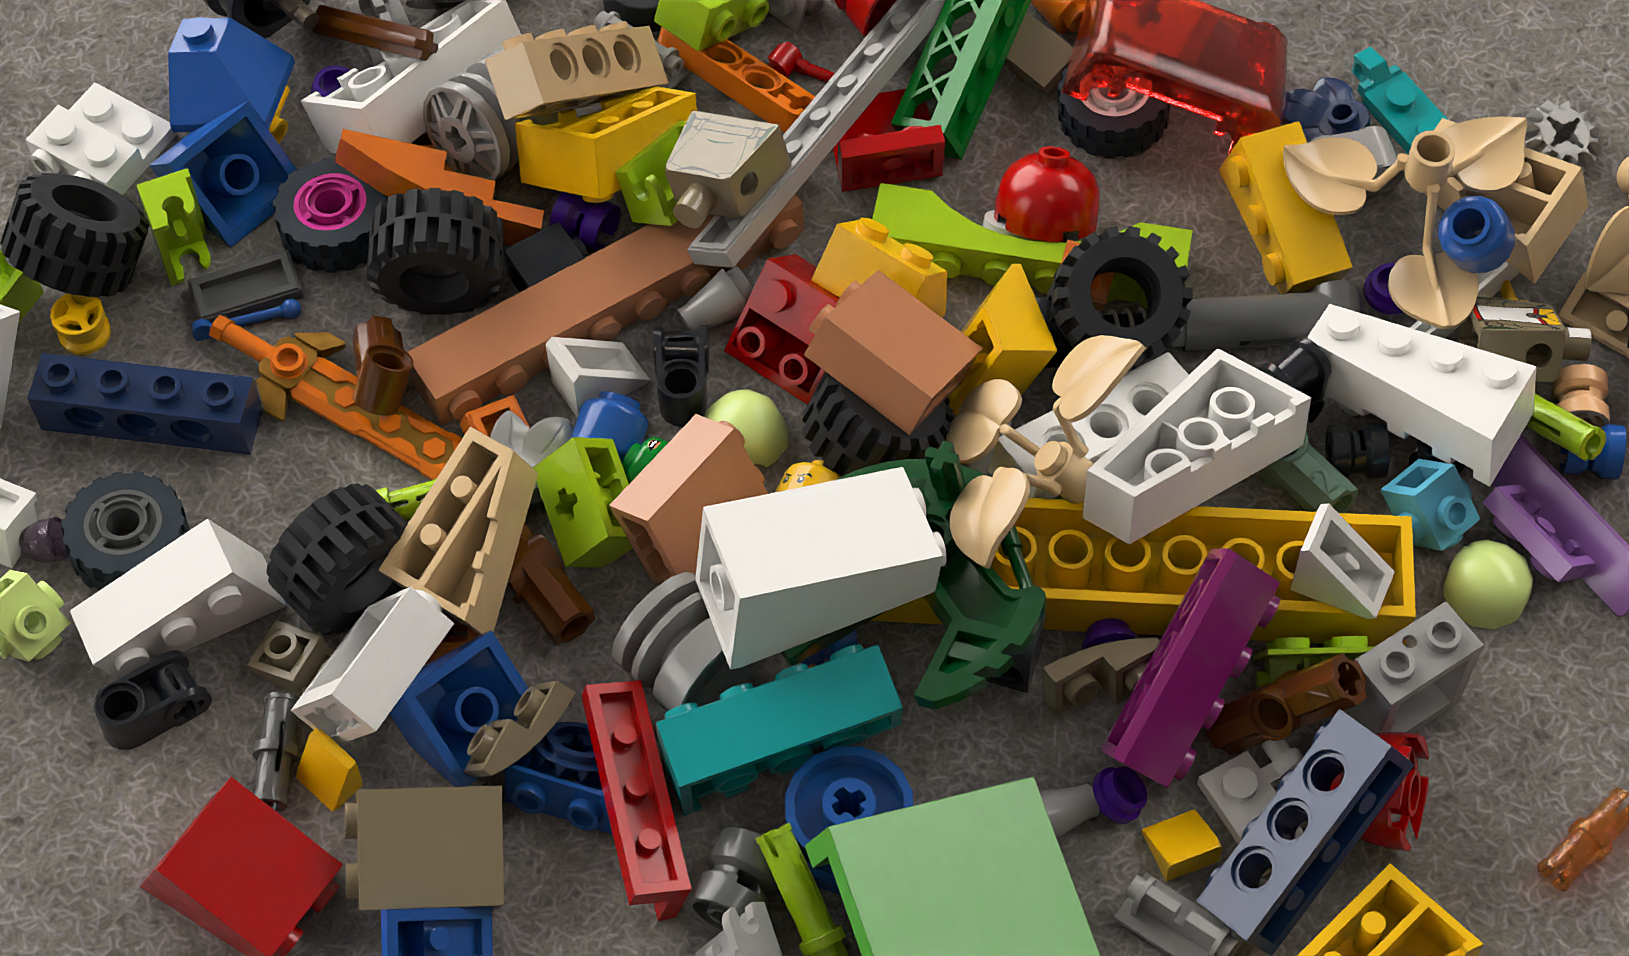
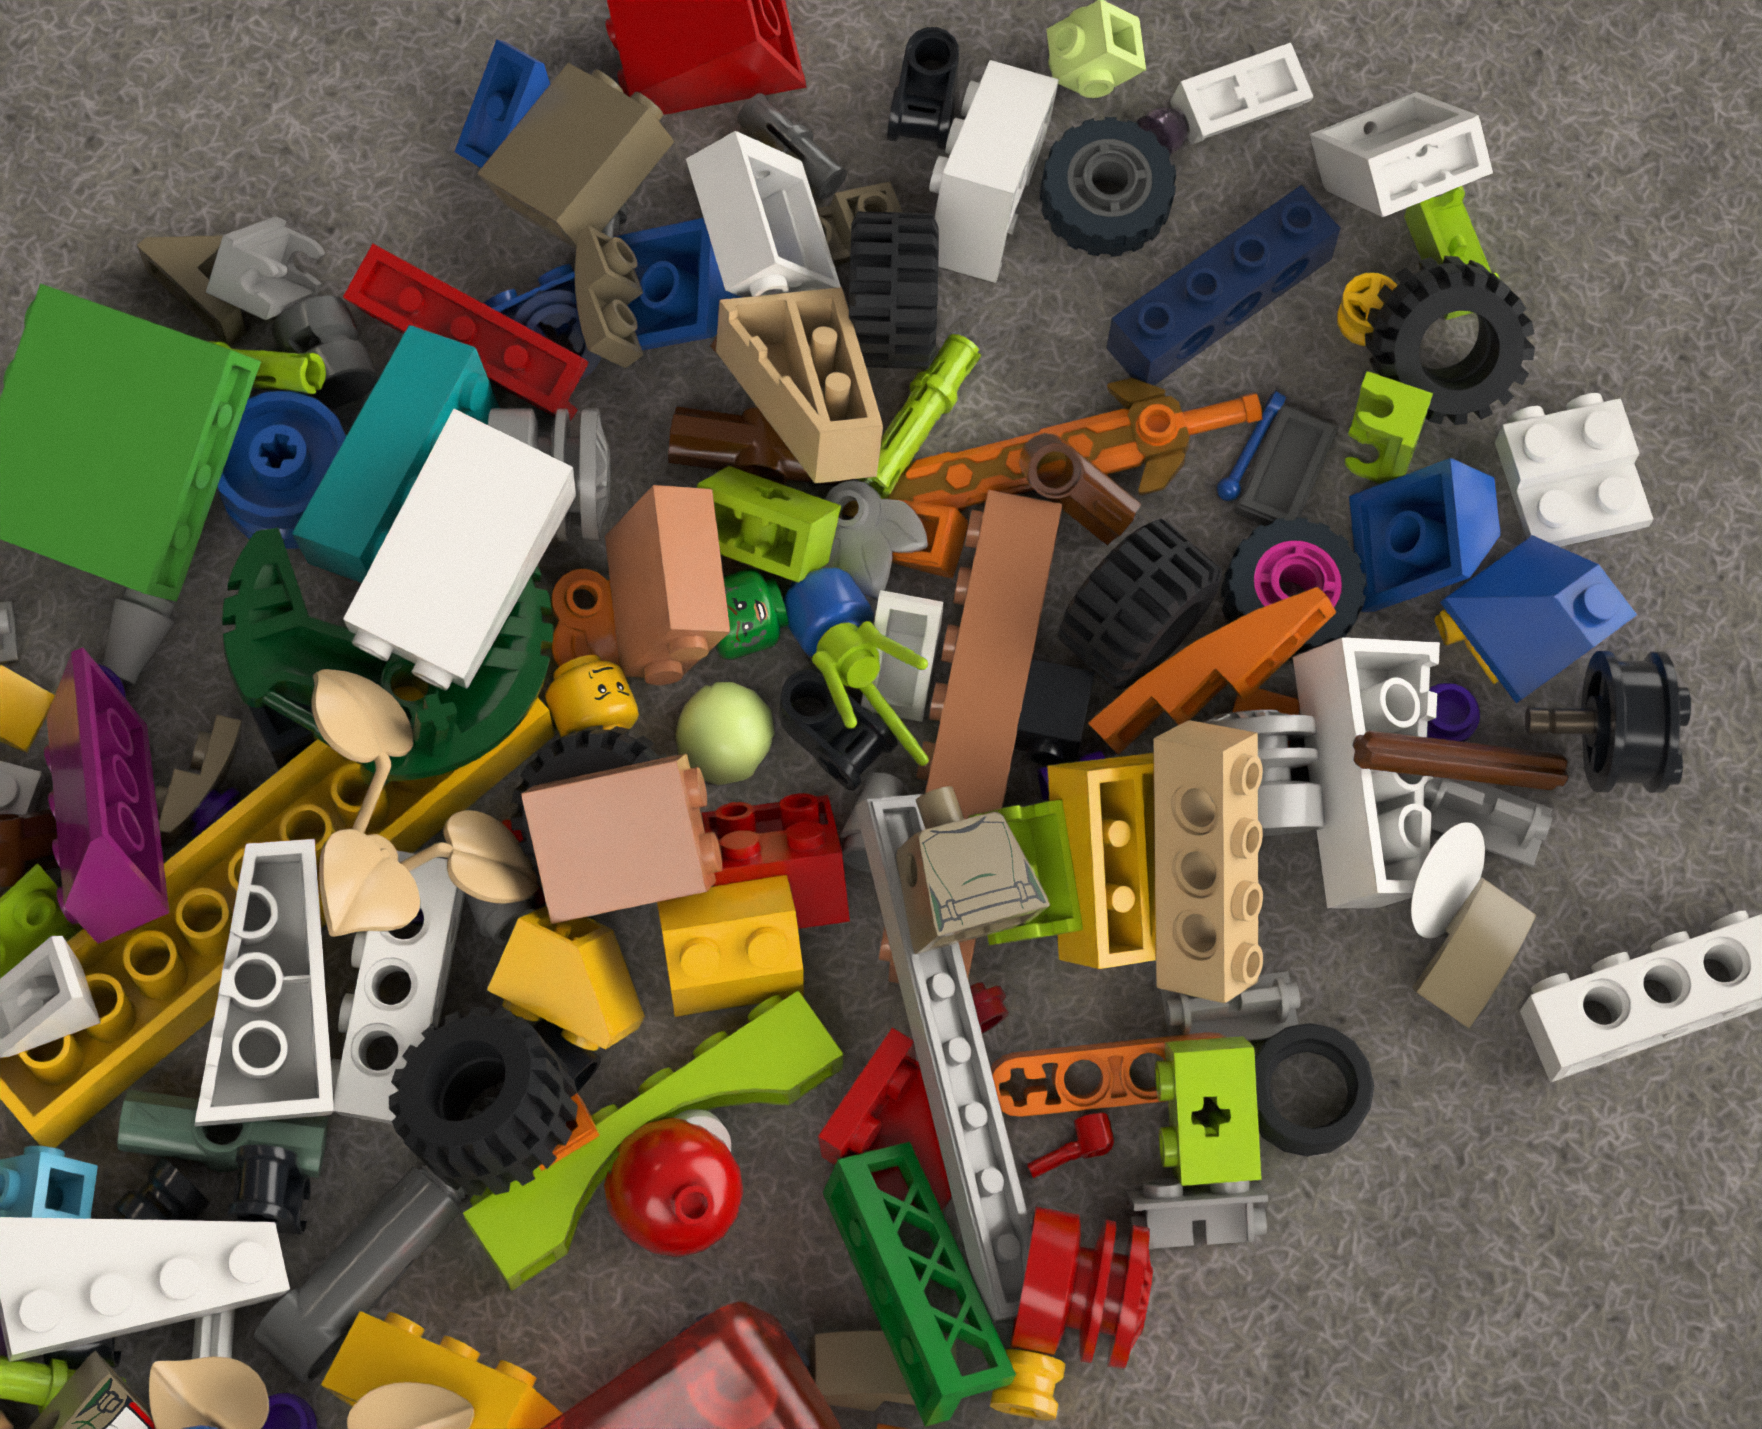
camera: 130 degrees right, 10 degrees up
(633, 371) = (850, 658): none -> lime plant

